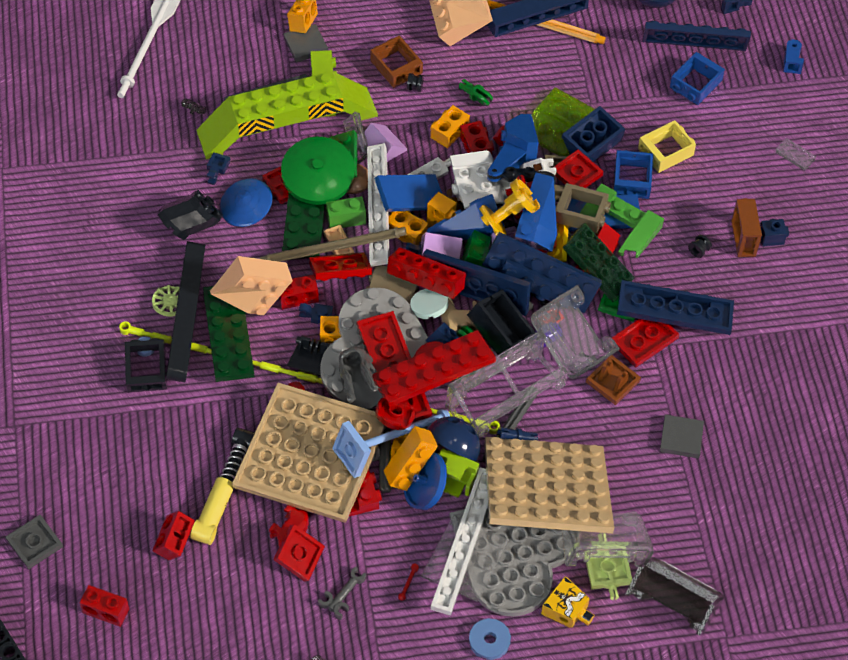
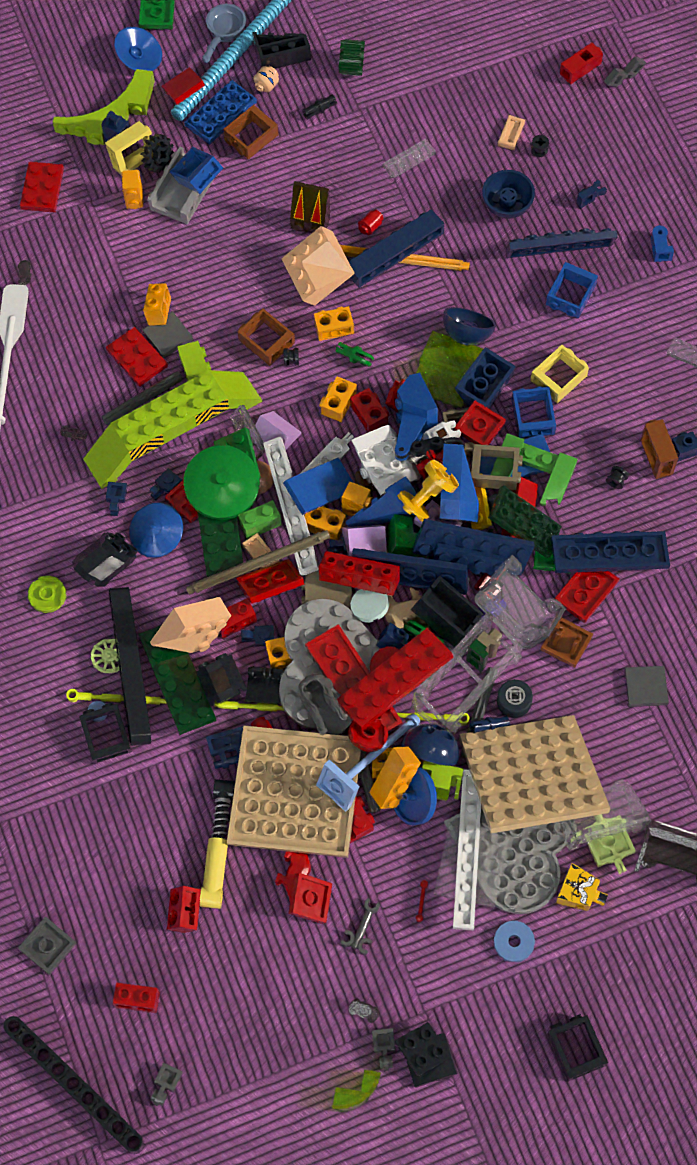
camera: 10 degrees left, 10 degrees up
(128, 237) = (47, 594): none -> lime tile
(254, 399) = (224, 743): none -> dark blue plate
(264, 165) = (164, 483): none -> dark blue plate
(268, 339) = (221, 679): none -> black brick
(271, 55) = (136, 356): none -> red plate
(463, 63) = (334, 327): none -> light orange brick
(529, 366) = (482, 648): none -> hips
(548, 418) = (510, 704): none -> black wheel
(588, 88) = (467, 325): none -> dark blue piece

